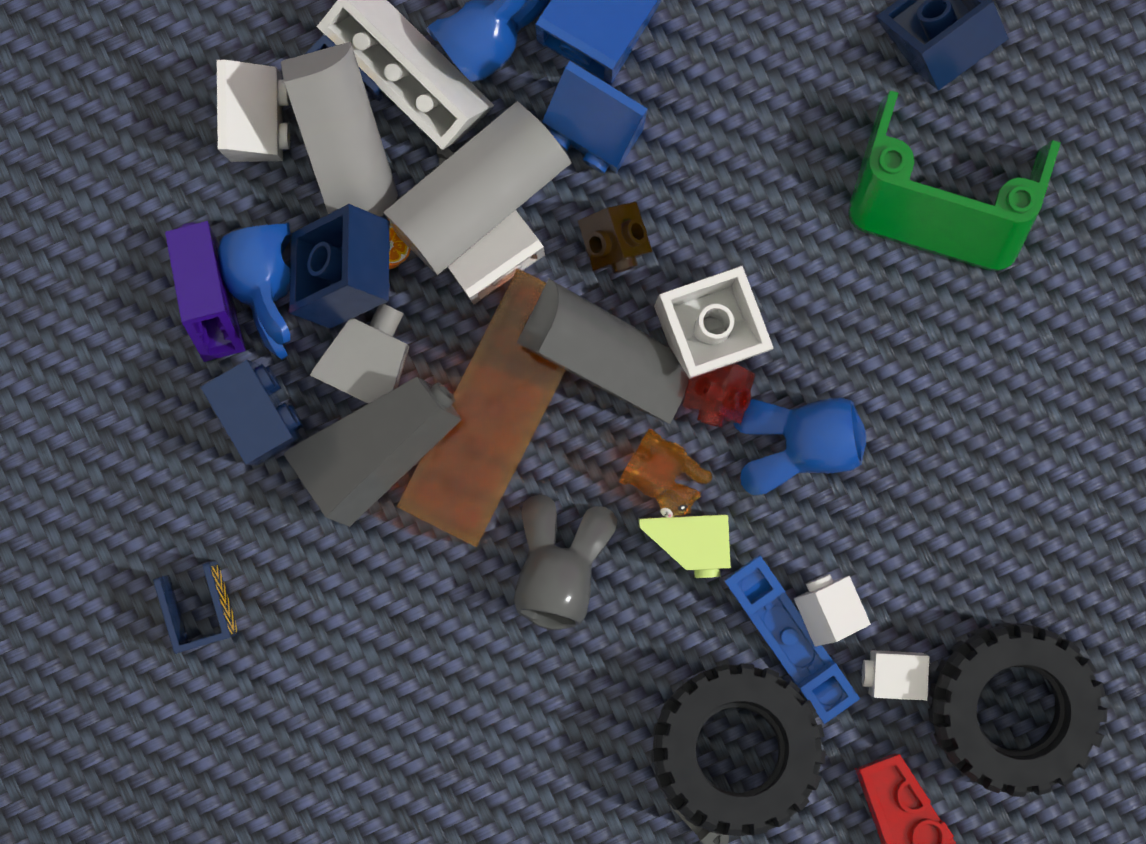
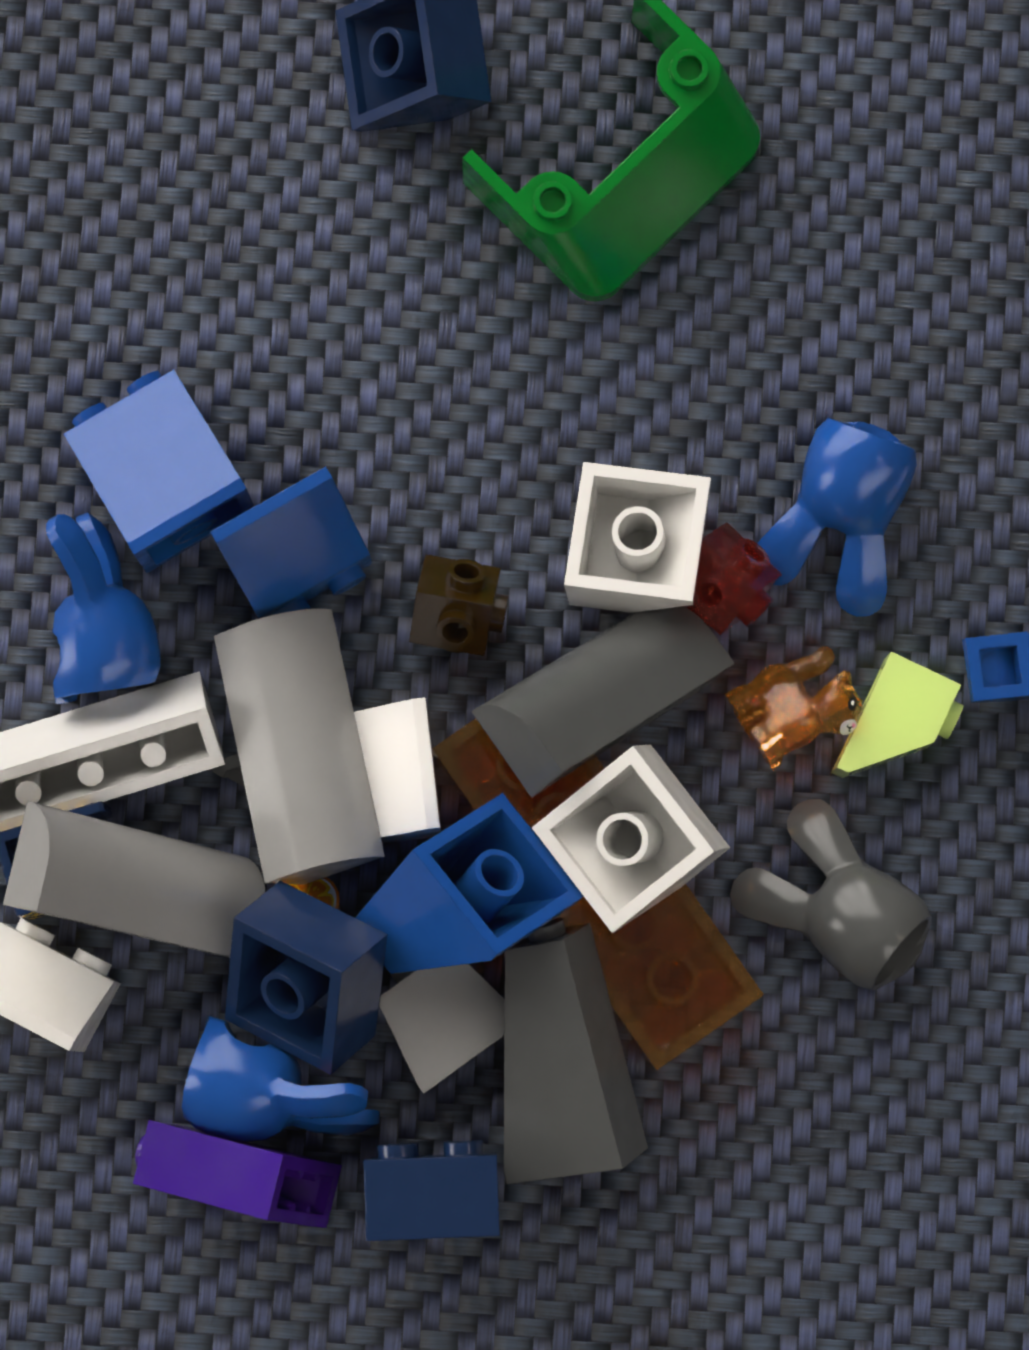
camera: 65 degrees left, 5 degrees down
(439, 337) = (469, 892): none -> blue slope
(525, 415) = (630, 837): none -> white slope

